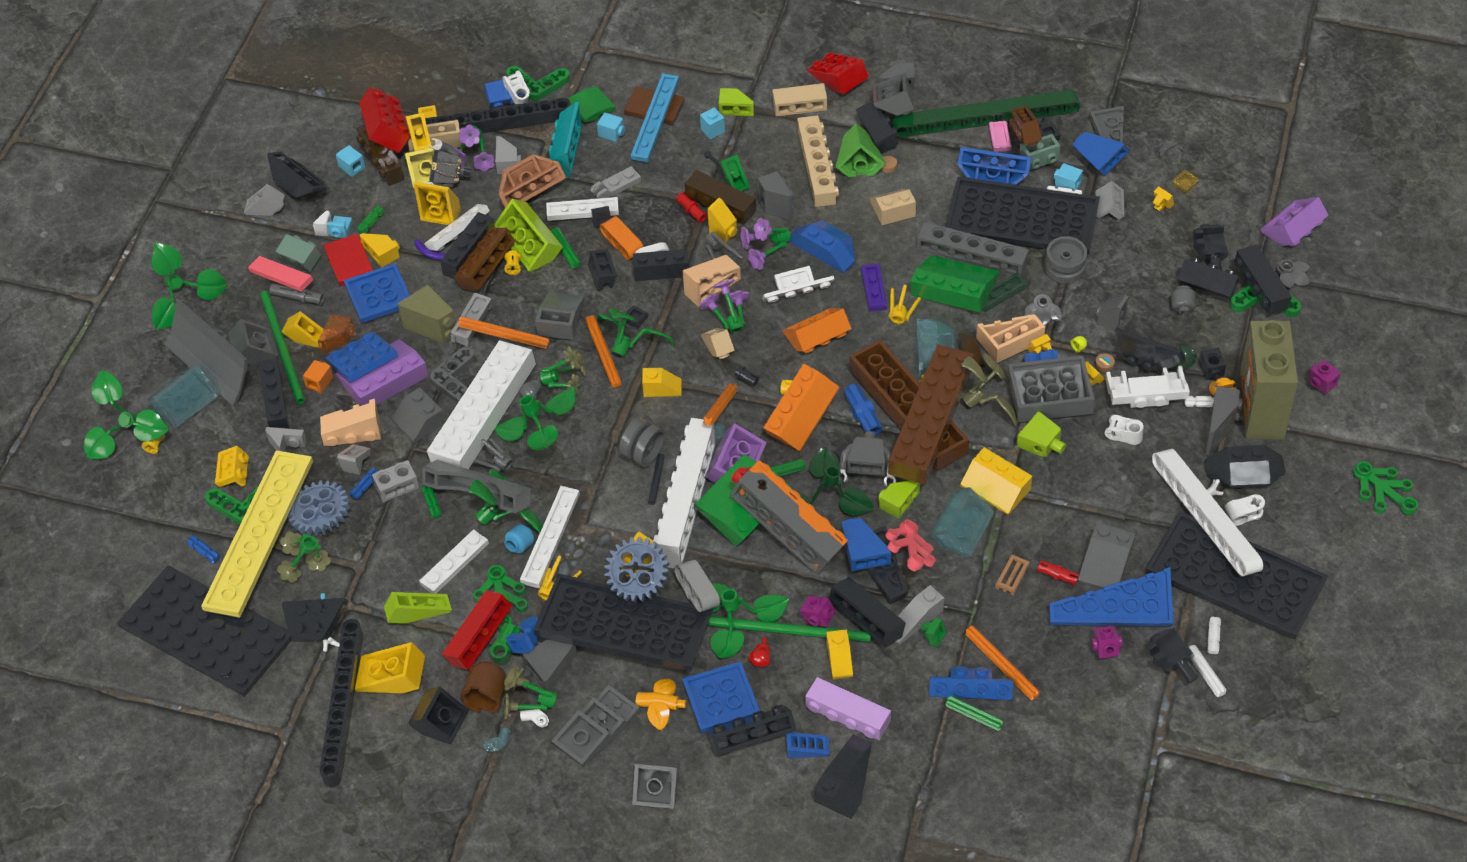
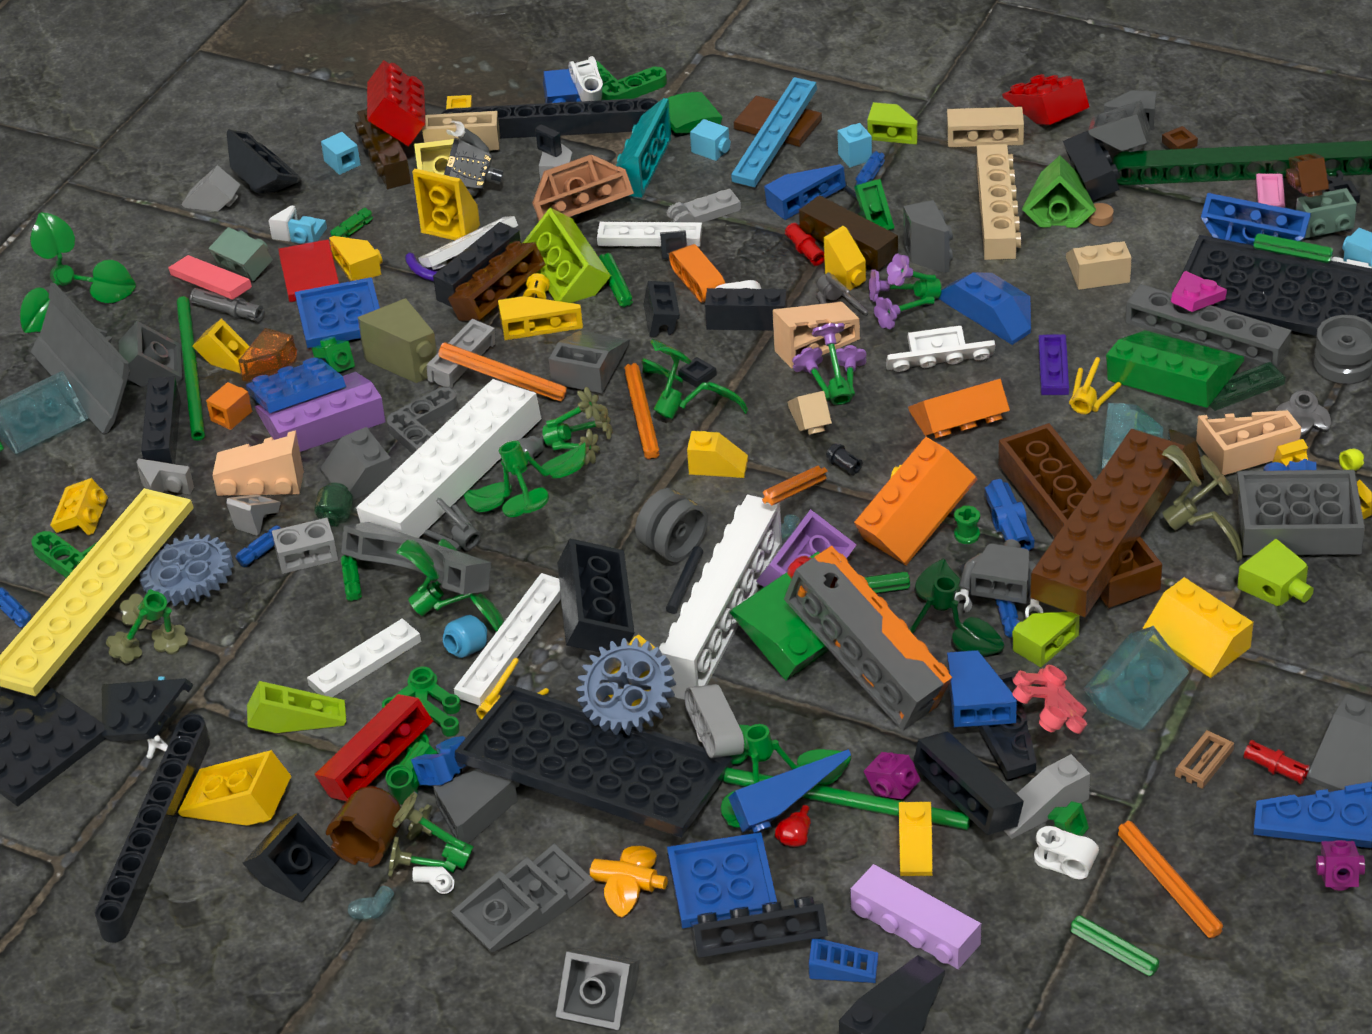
camera: 10 degrees right, 10 degrees down
(383, 326) = (336, 353): none -> green bracket
(408, 447) = (334, 503): none -> clear green head
(418, 131) = (437, 115): yellow slope -> none
(472, 135) = (515, 134): medium lavender plant -> none
(500, 142) = (548, 140): none -> black tile
(515, 284) = (537, 316): none -> yellow slope
(602, 502) = (594, 596): none -> black brick
(681, 164) = (797, 189): none -> blue slope
(725, 141) = (870, 168): none -> blue axle
(745, 637) = (766, 800): none -> blue slope
(836, 417) = (967, 529): none -> green bush
(873, 485) = (1008, 615): none -> blue axle
(933, 99) = (1179, 139): none -> reddish brown plate
(936, 653) = (1066, 854): none -> white piece
(962, 225) = (1196, 293): none -> dark pink wing
(971, 684) = (1115, 904): blue bracket -> none
(1019, 182) = (1293, 248): none -> green axle

